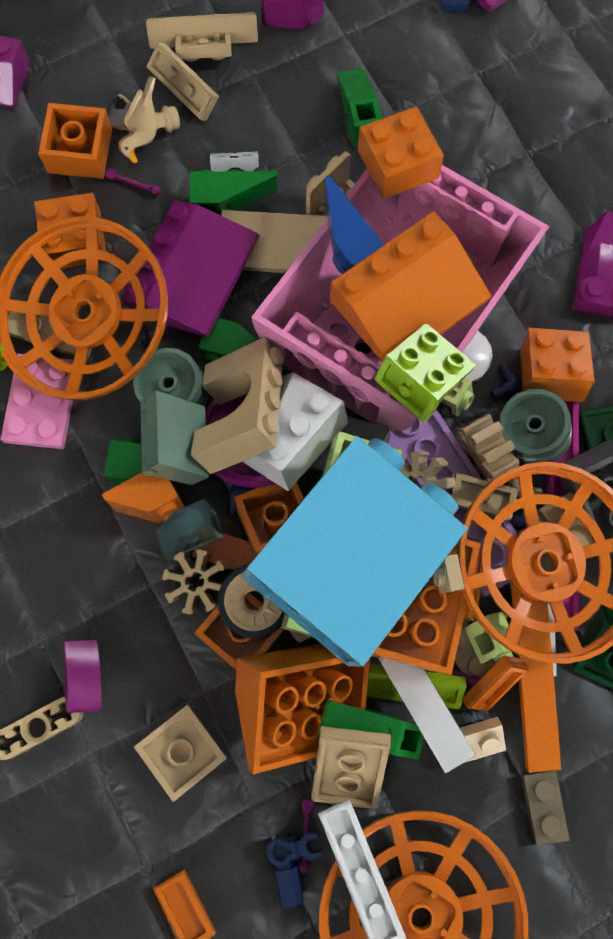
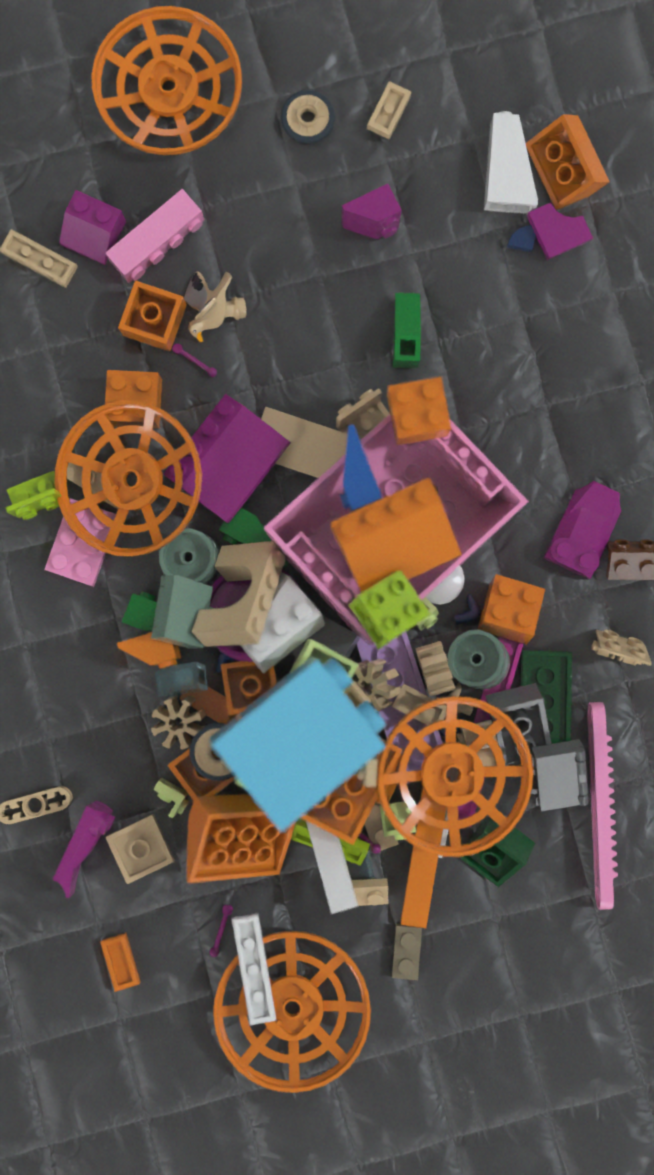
camera: 15 degrees right, 10 degrees up
(63, 64) = (155, 236): none -> bright pink brick
(82, 676) = (76, 775): magenta slope -> none
(111, 737) = (94, 822): none -> magenta slope
(182, 81) = (256, 274): tan tile -> none
(203, 34) = (283, 233): tan bracket -> none
(203, 671) = (169, 792): none -> yellowish green bracket
(230, 188) = (268, 390): green slope -> none
(246, 163) = (273, 361): white piece -> none
(282, 853) = (201, 939): dark blue bar -> none
(350, 766) = (263, 891): tan tile -> none
(405, 734) = (286, 867): green slope -> none
(495, 683) = (390, 855): orange tile -> none

